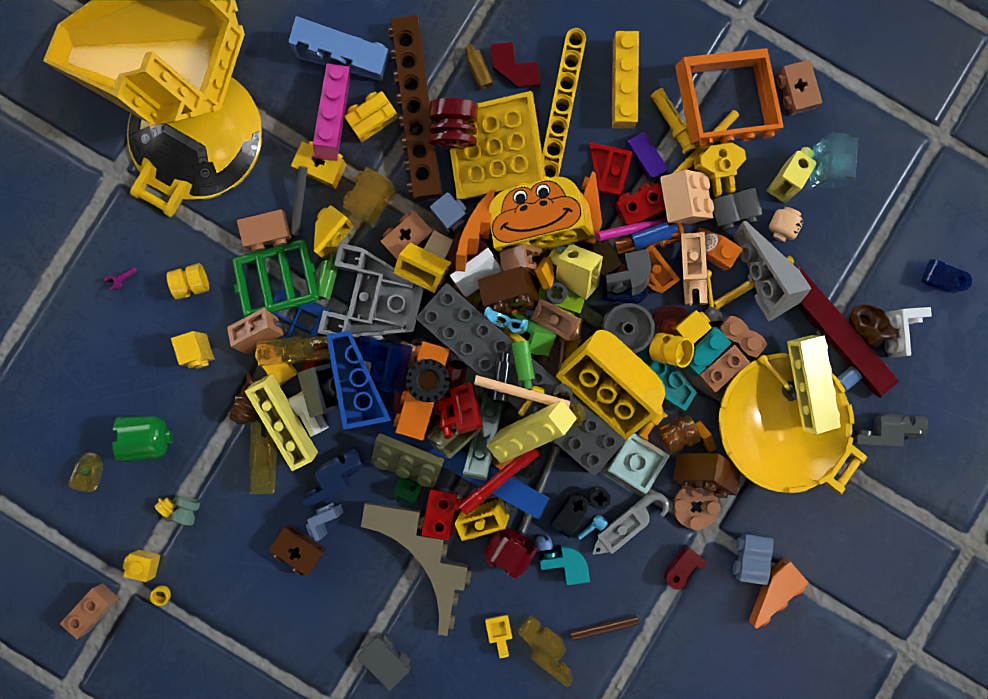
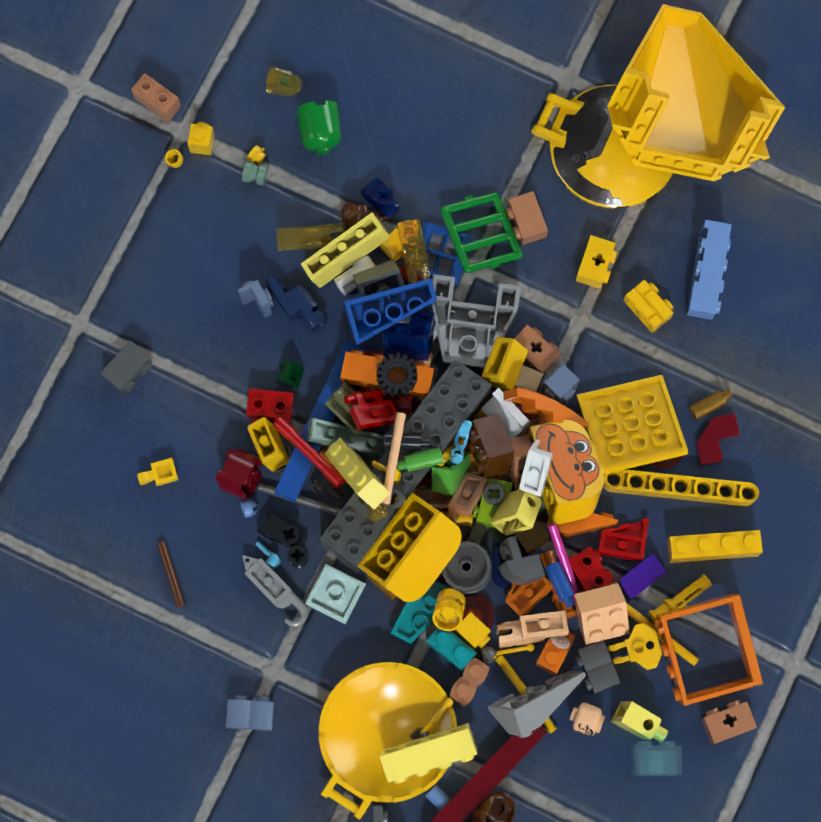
camera: 85 degrees right, 10 degrees down
(118, 279) = (466, 91): magenta hand -> none
(184, 282) = (471, 155): yellow wheel -> none
(193, 349) = (406, 164): yellow brick -> none
(226, 380) = (380, 197): none -> clear blue piece
(253, 329) = (431, 217): nougat hinge -> none
(298, 200) = (558, 246): dark grey bar -> none
(309, 552) = (225, 289): reddish brown brick -> none
(327, 277) = (487, 280): bright green cylinder -> none
(330, 230) = (532, 277): yellow slope -> none
(331, 112) = (646, 267): dark pink brick -> none
(368, 197) = (567, 309): clear yellow brick -> none
(406, 461) = (318, 368): olive plate -> none
(409, 28) = (736, 324): reddish brown brick -> none
(445, 575) = (211, 415): dark tan arch -> none
(452, 120) = (646, 379): dark red wheel -> none
(544, 245) = (535, 470): none -> white panel
(545, 273) = (510, 480): light orange tile -> none
(547, 649) = (146, 519): clear yellow plate -> none
(571, 560) = (233, 537): teal brick -> none
(646, 429) = (381, 605): yellow piece -> none
(677, 435) = (365, 627): clear orange wheel -> none
(682, 566) = (231, 640): dark red leg -> none
(695, 520) = (283, 654): nougat plate -> none
(706, 436) = (366, 657): light orange tile -> none
(707, 472) = (331, 657): reddish brown brick -> none
(723, 369) = (435, 665): nougat brick -> none
(783, 585) = (223, 741): orange slope -> none

